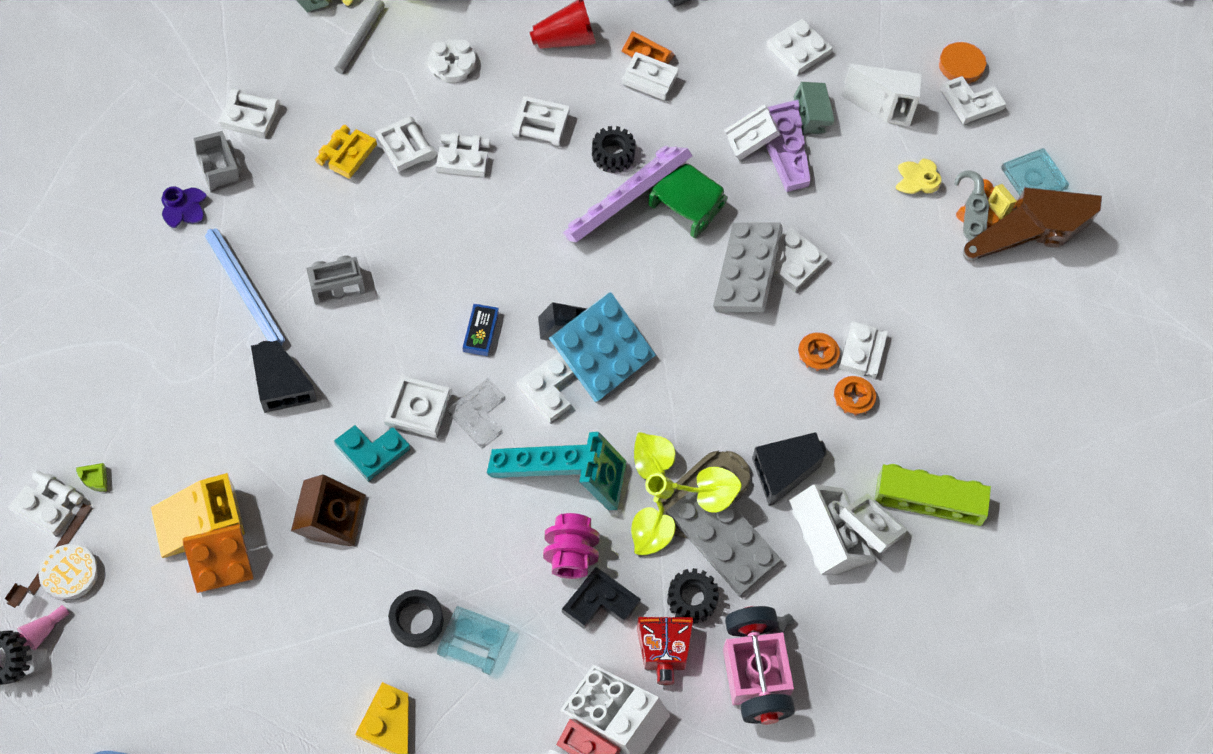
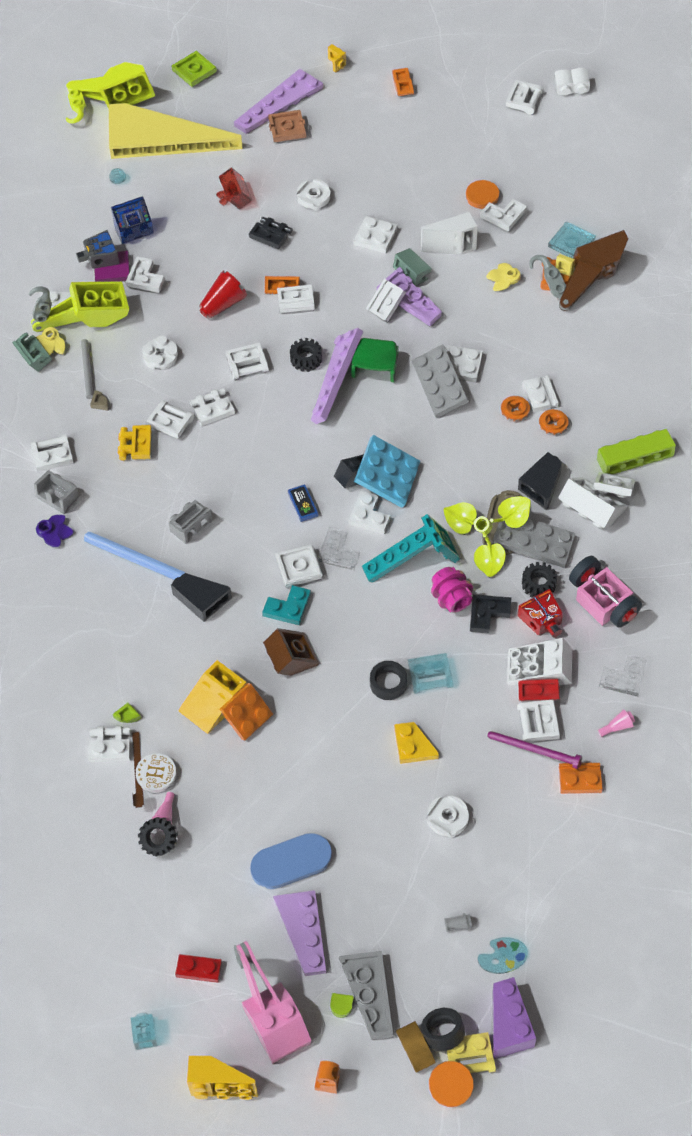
camera: 25 degrees left, 5 degrees down
(345, 81) = (99, 401): none -> dark tan tile

